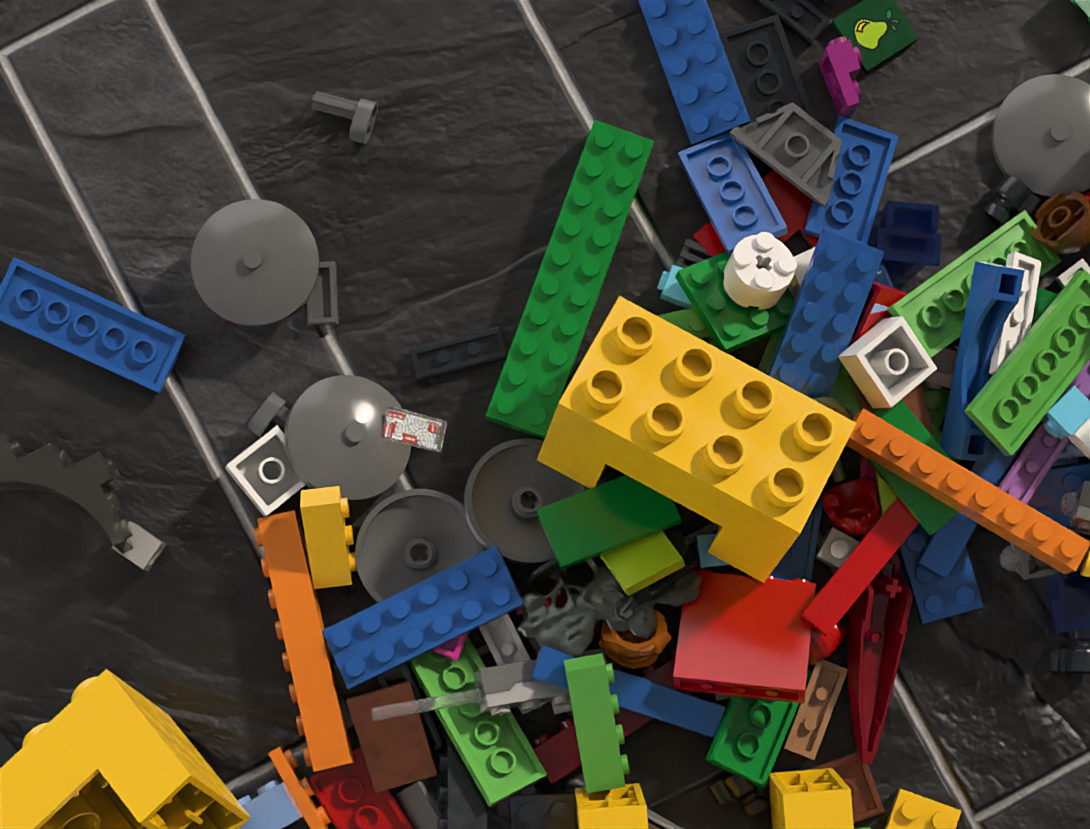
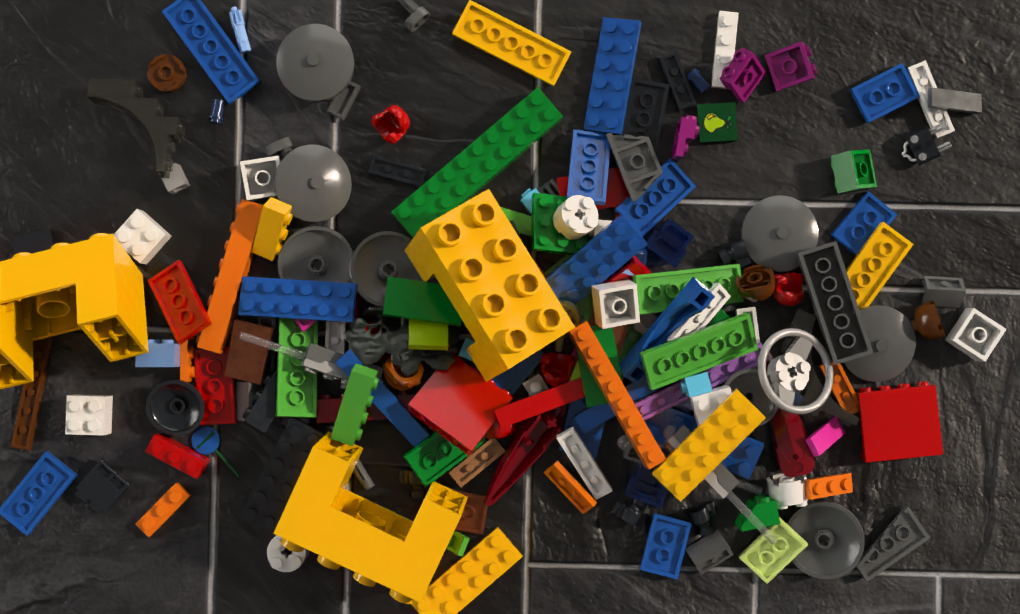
camera: 35 degrees right, 5 degrees up
(41, 400) = (166, 73): none -> reddish brown tile
(114, 278) = (239, 30): none -> light blue piece
(140, 656) = (142, 236): none -> white brick
(147, 414) = (217, 112): none -> dark blue pin
(249, 721) = (179, 302): none -> red tile
(413, 289) = (391, 123): none -> red hair
(414, 429) = (350, 198): clear tile -> none
(518, 80) = (511, 43): none -> yellow plate
(971, 669) = (570, 487): none -> orange plate
(972, 621) = (584, 463): none -> white plate

